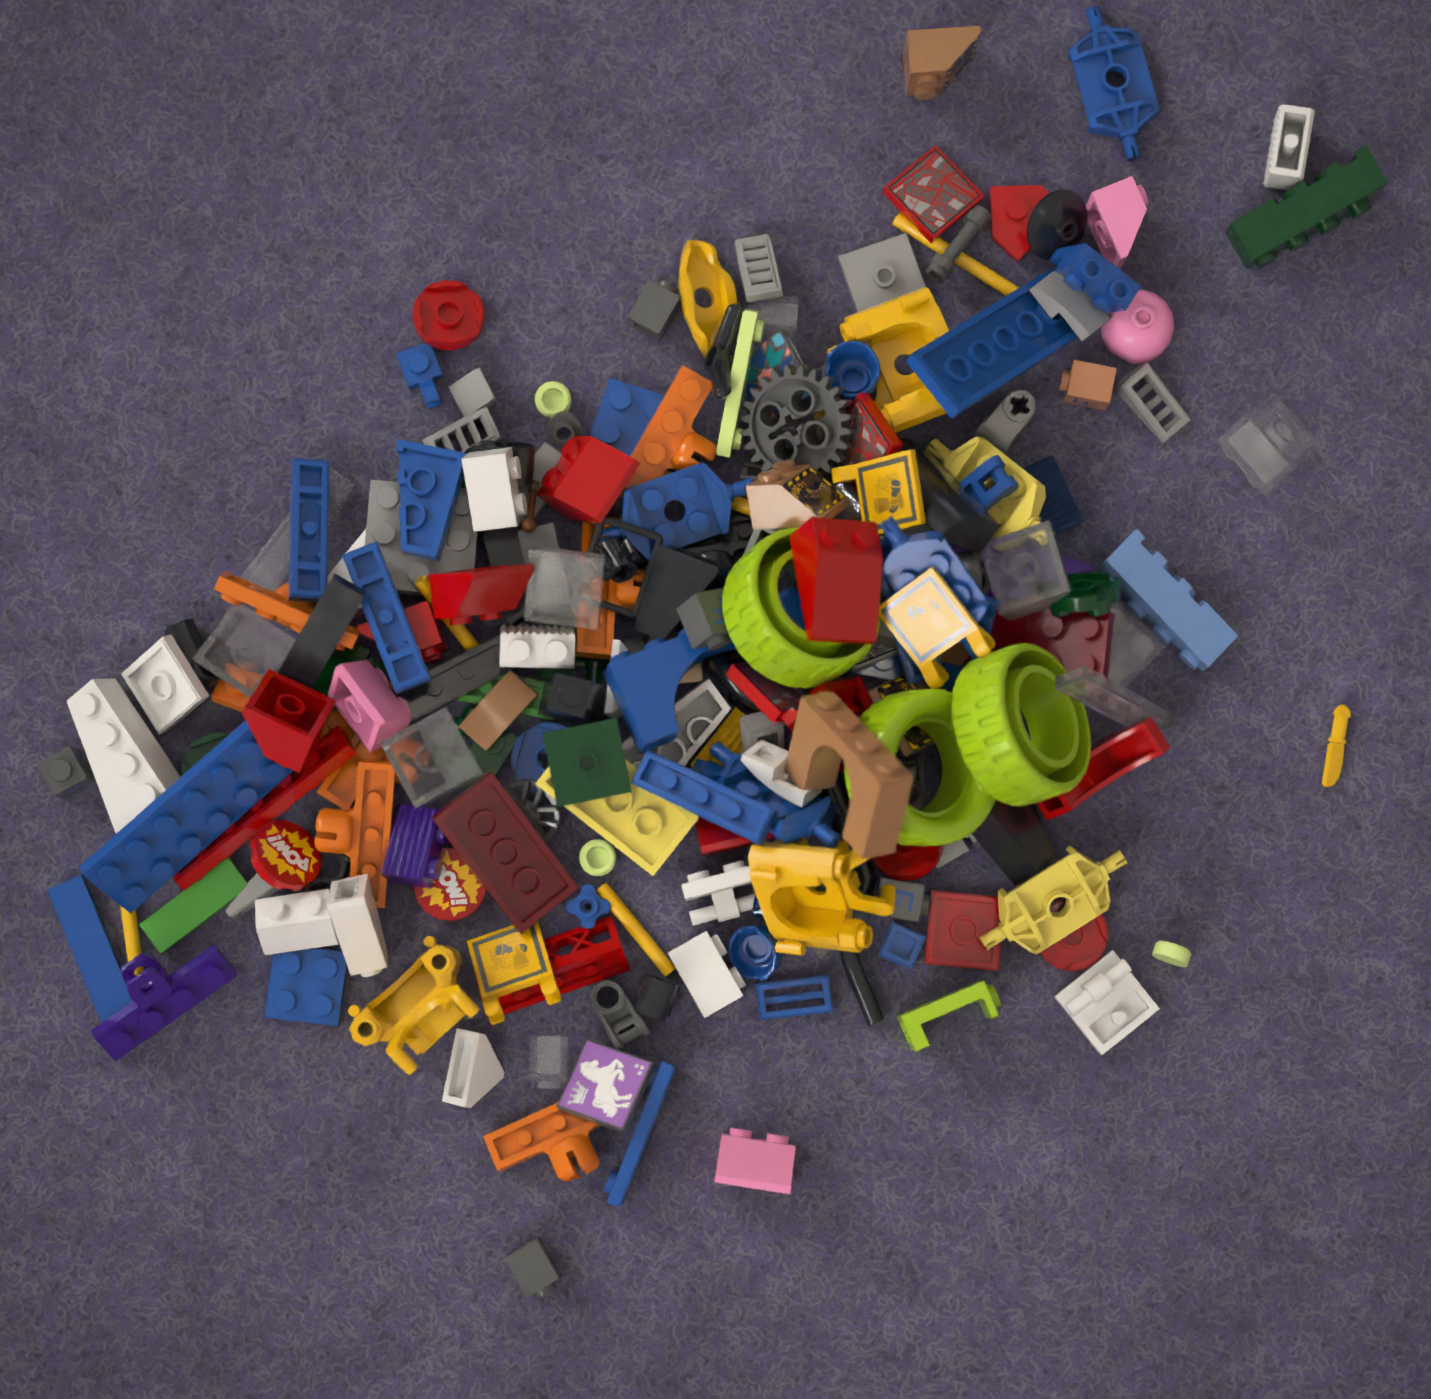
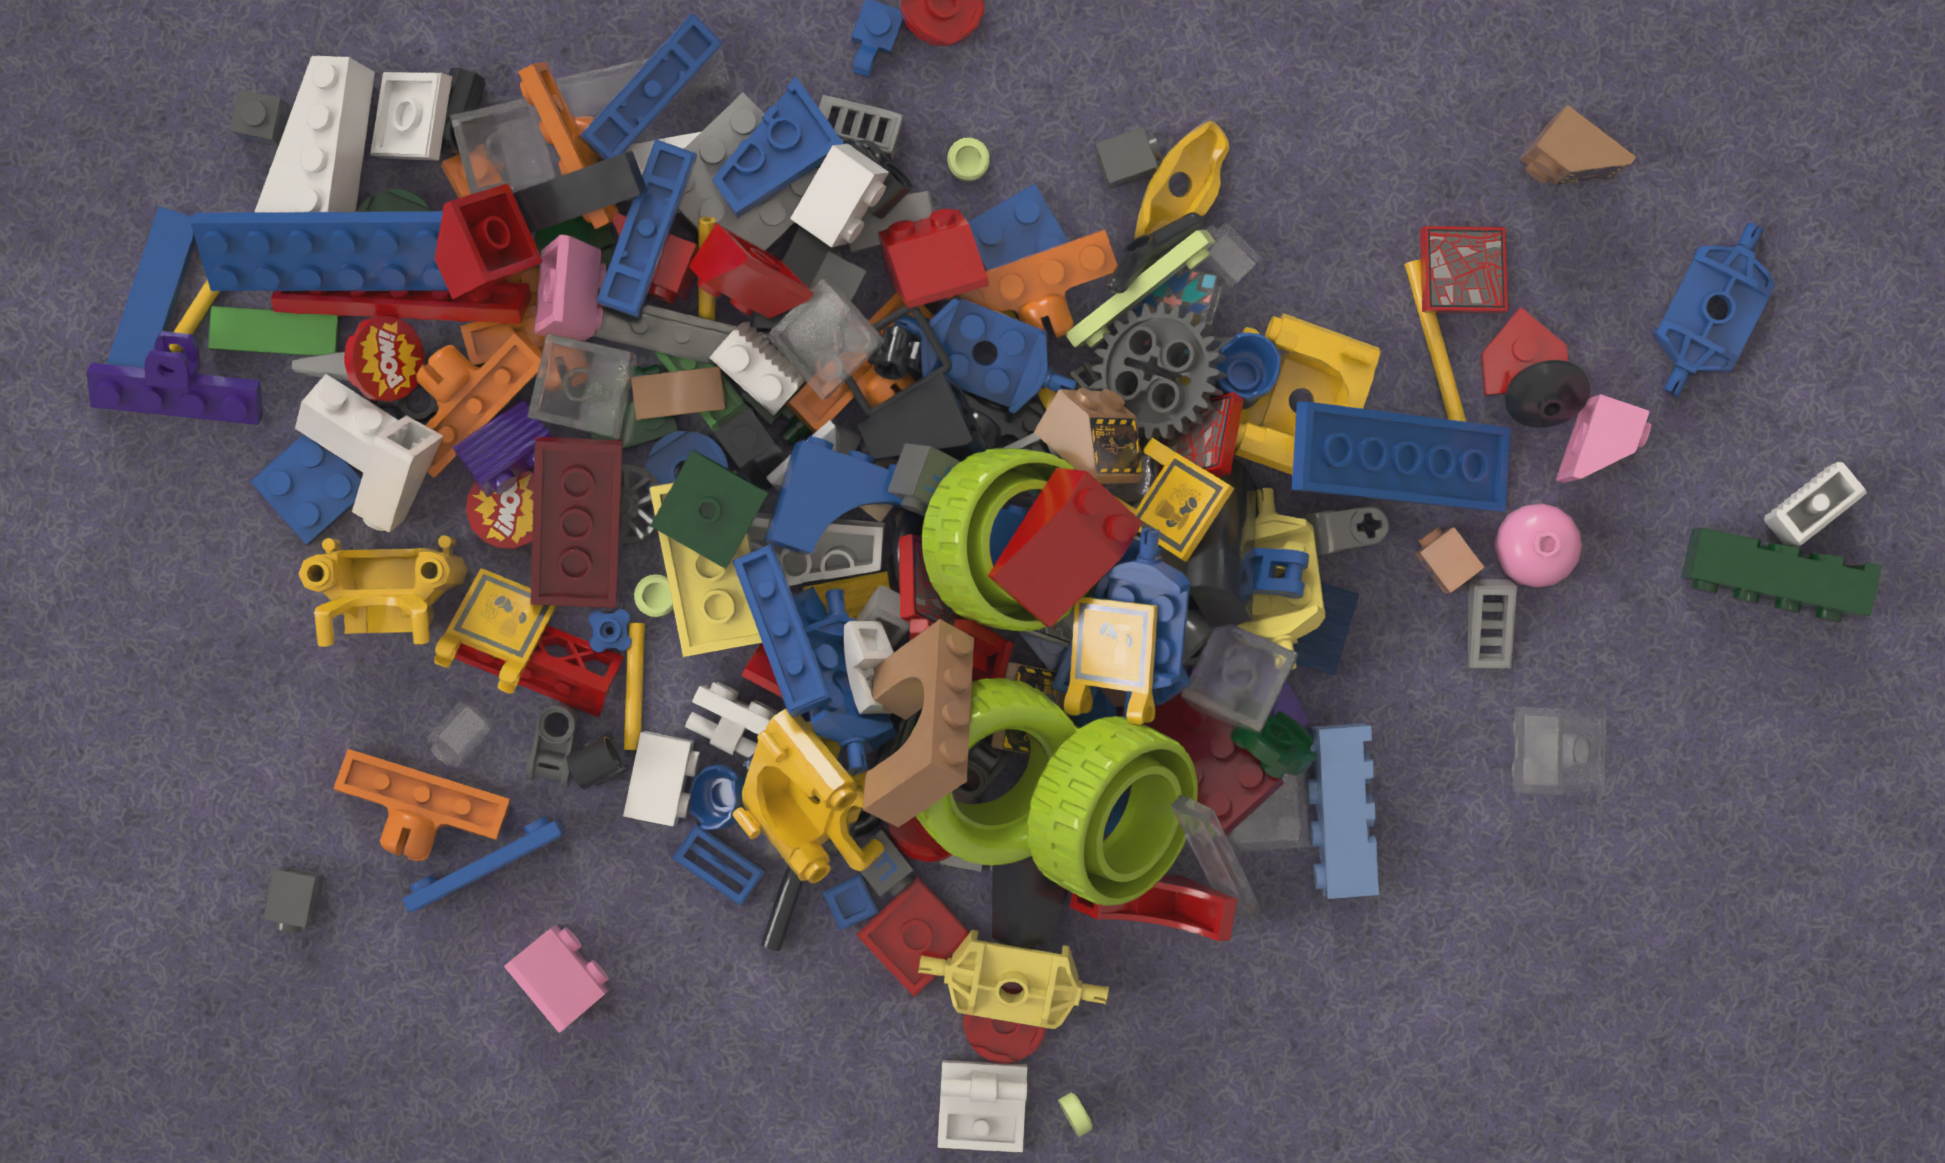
camera: 35 degrees right, 5 degrees up
(471, 1069) = (388, 683): white slope -> none
(472, 393) = (903, 92): light grey slope -> none
(529, 524) = (843, 255): reddish brown hinge -> none
(563, 419) = (960, 186): dark grey plate -> none
(606, 1086) = (488, 800): tile -> none
(756, 266) = (1249, 200): light grey slope -> none
(881, 272) = (1355, 300): light grey plate -> none
(912, 1019) = (836, 986): lime panel -> none
(975, 222) = (1478, 327): dark grey bar -> none
(1073, 305) = (1494, 463): light grey slope -> none
(1096, 276) = (1537, 472): blue plate -> none
(1336, 747) = (1378, 1063): yellow piece -> none

